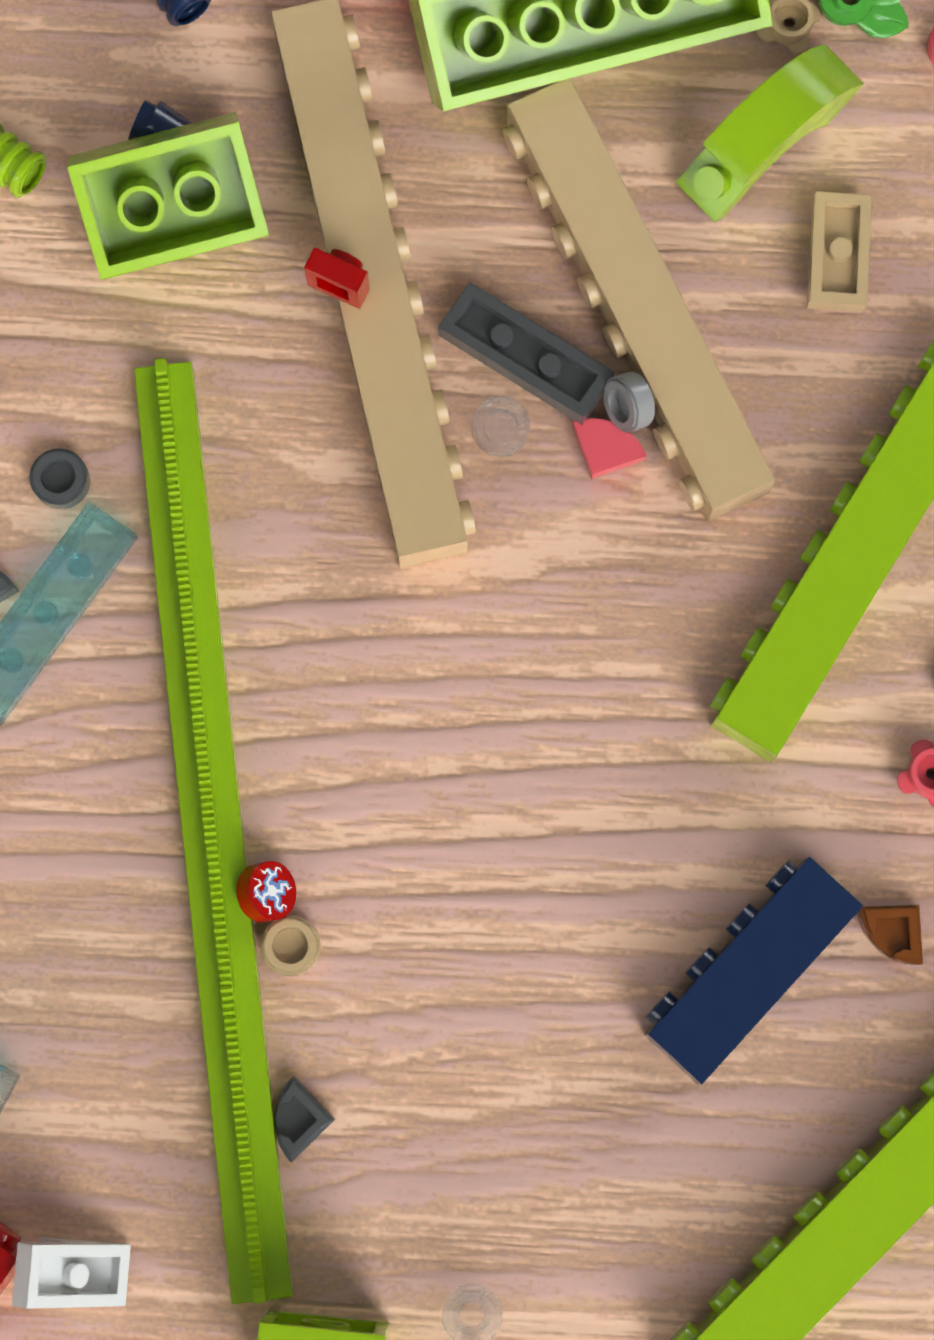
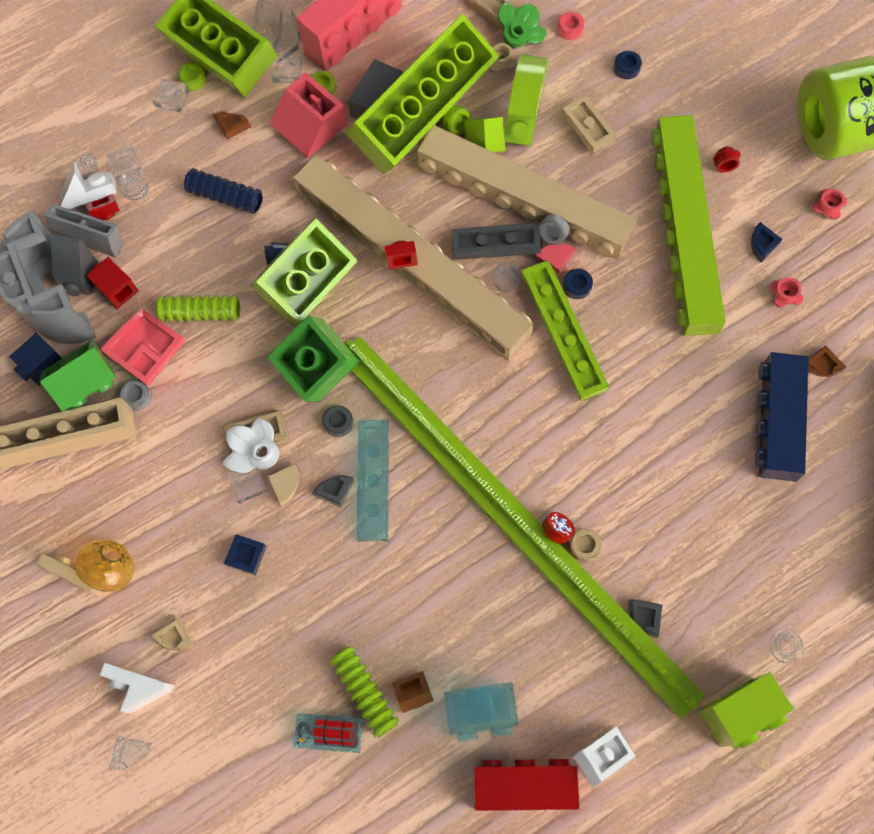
camera: 30 degrees left, 10 degrees down
(82, 354) = (313, 359): none -> bright green brick
(520, 581) = (564, 331): none -> lime plate
(606, 518) = (577, 284): none -> dark blue tile
(622, 90) = (454, 119): none -> lime tile
(651, 149) = (486, 133): none -> lime panel

